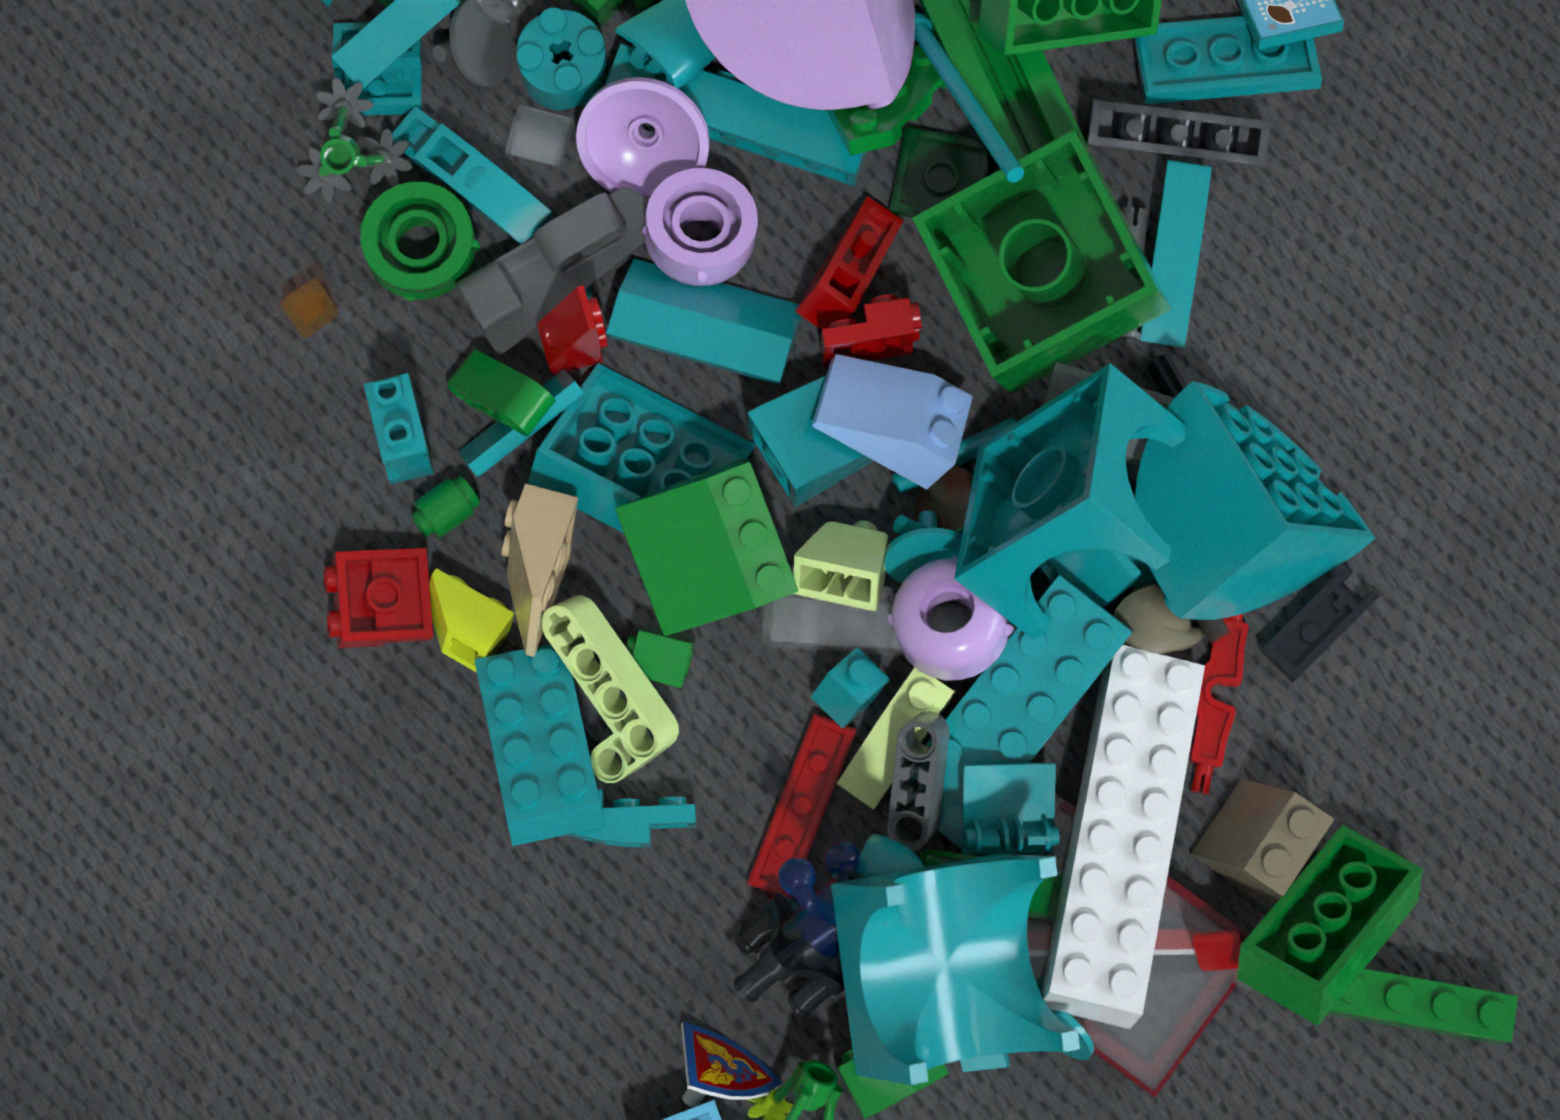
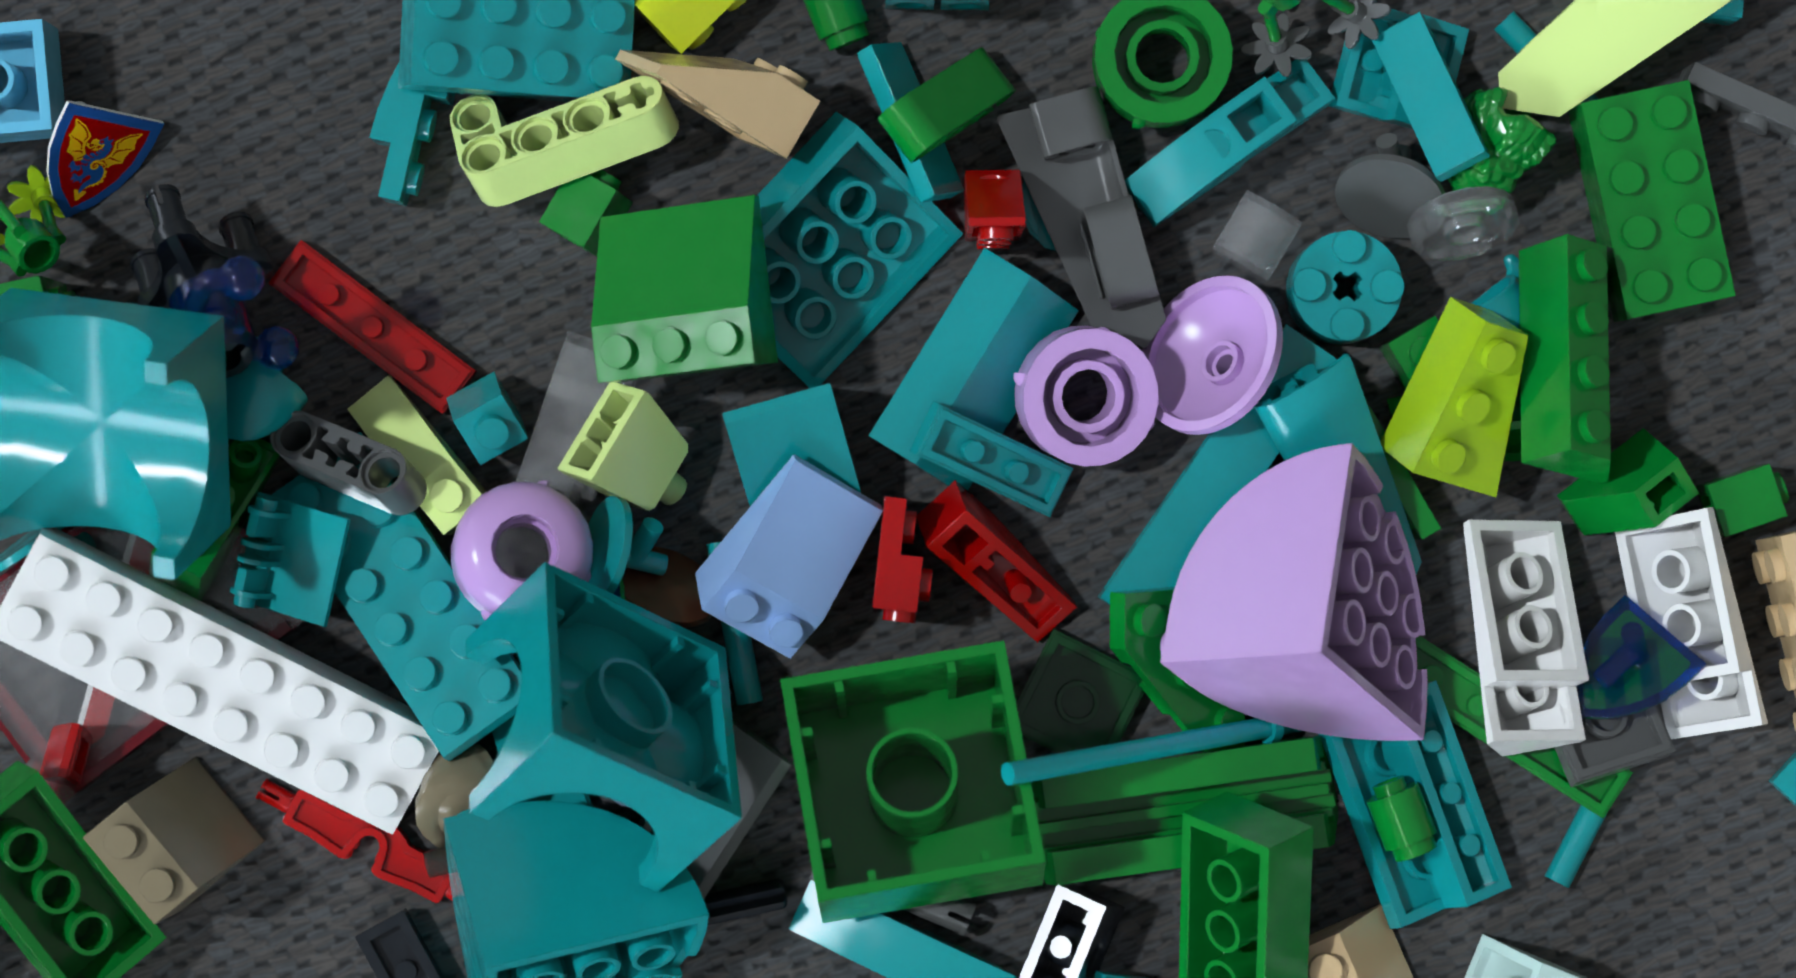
camera: 100 degrees right, 10 degrees up
(771, 286) = (991, 459): none -> teal tile

